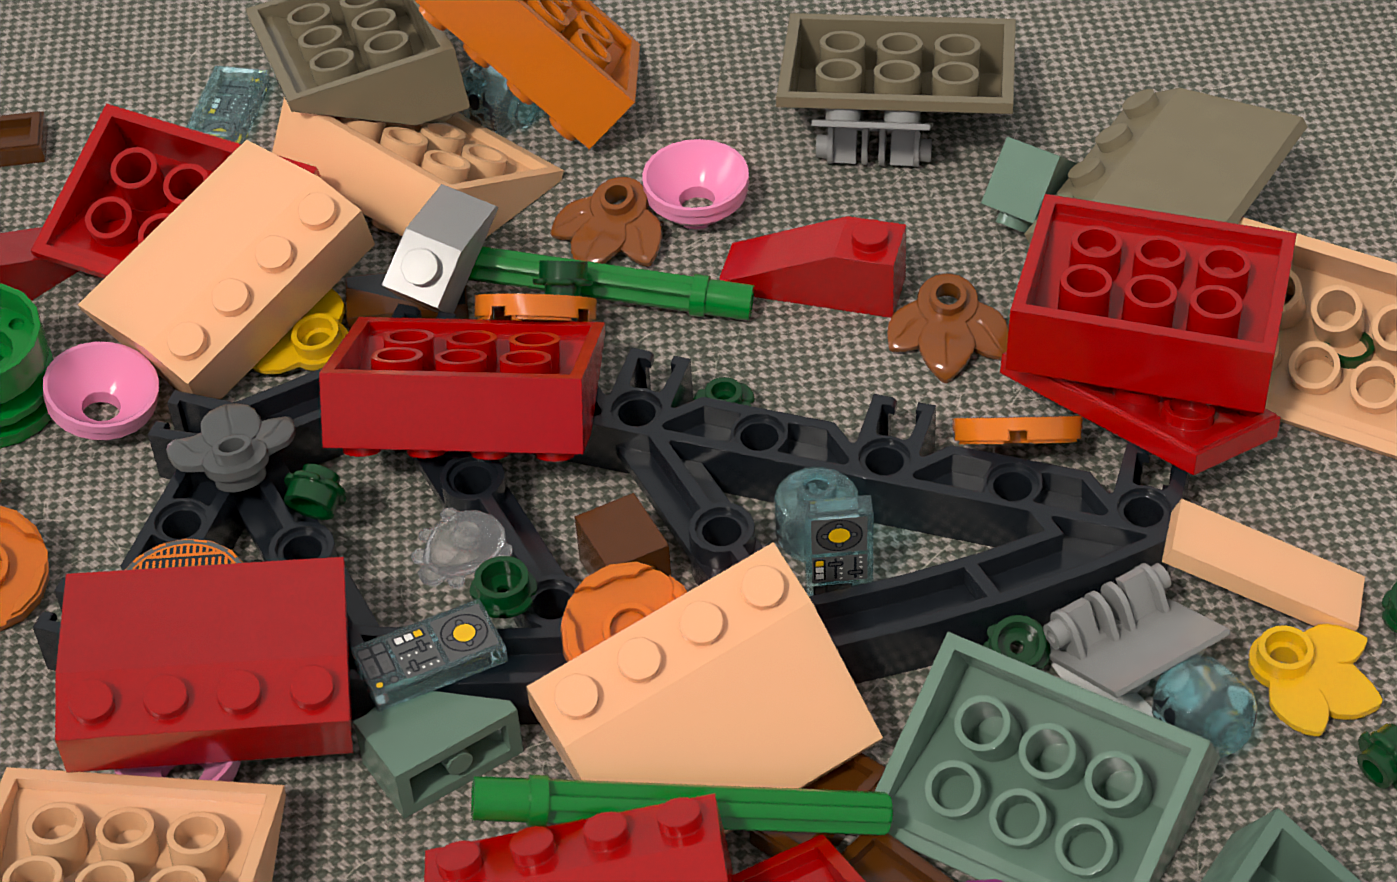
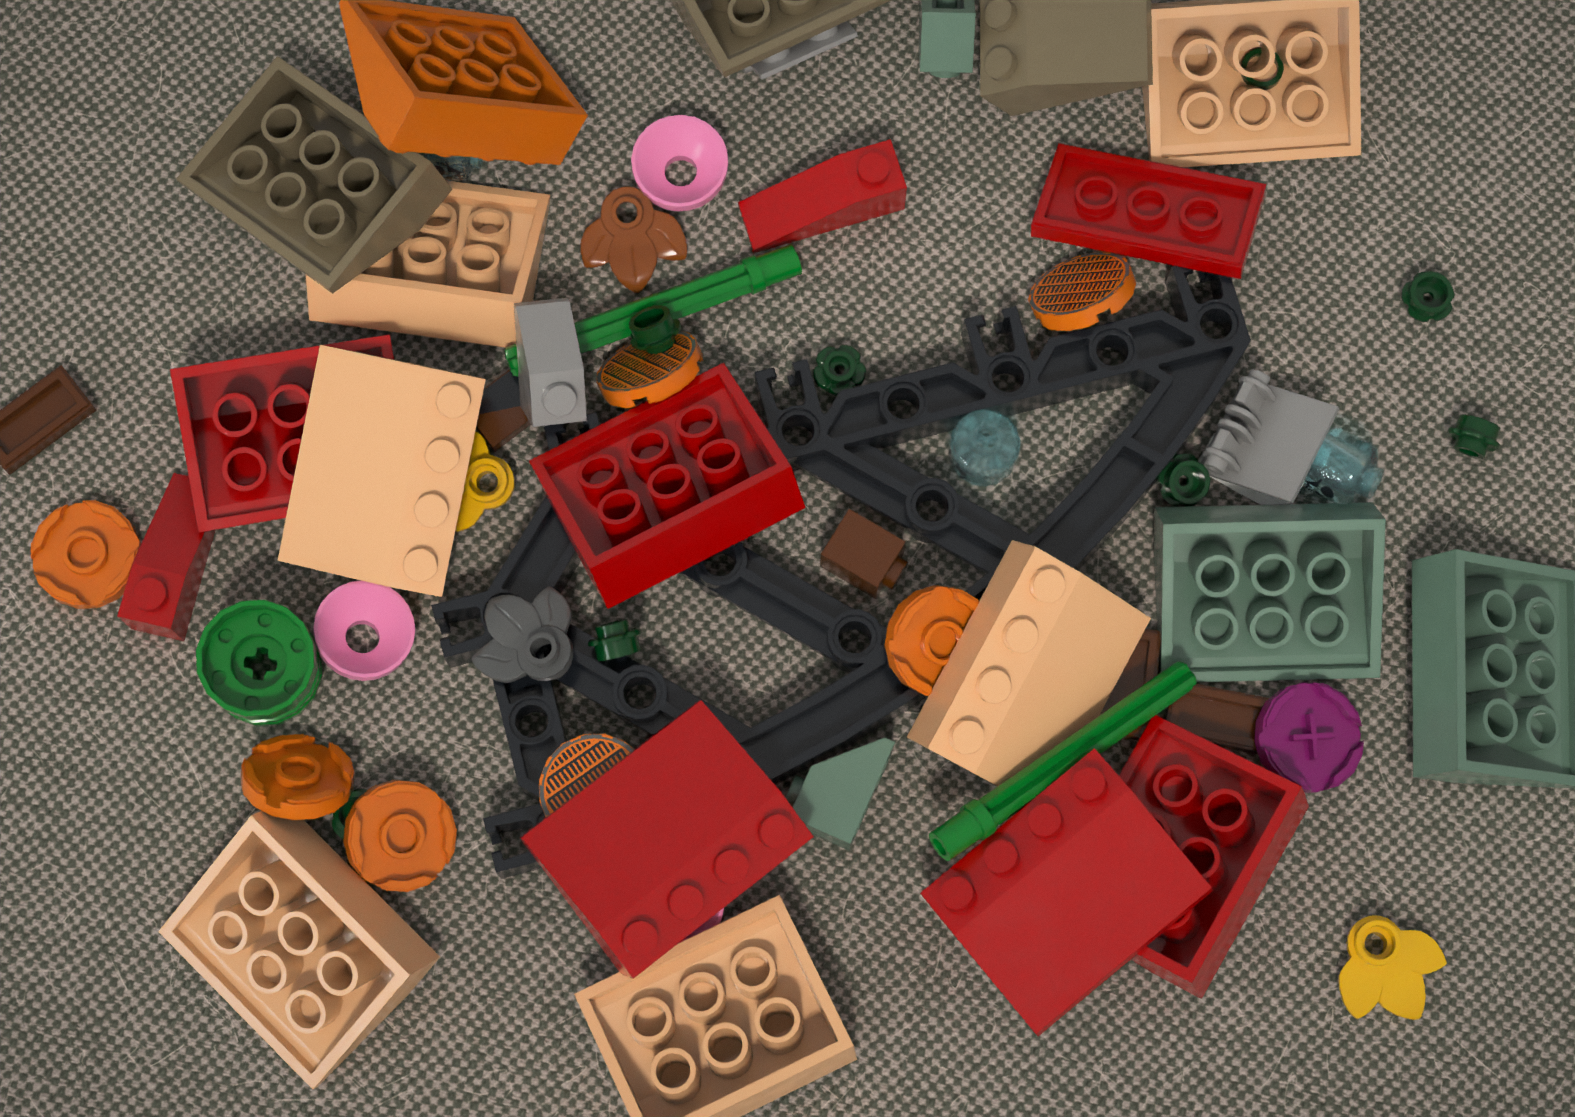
camera: 35 degrees left, 30 degrees up
(230, 102) = (215, 277): clear light blue tile -> none
(429, 654) = (809, 736): tile -> none
(459, 546) = (764, 632): clear piece -> none
(503, 587) = (828, 640): dark green plate -> none
(837, 543) = (1029, 479): tile -> none
(948, 332) = (966, 210): dark orange plate -> none
(1151, 302) = (1138, 139): red slope -> none
(1262, 567) = (1319, 326): light nougat tile -> none
(1317, 678) = (1396, 391): yellow plate -> none

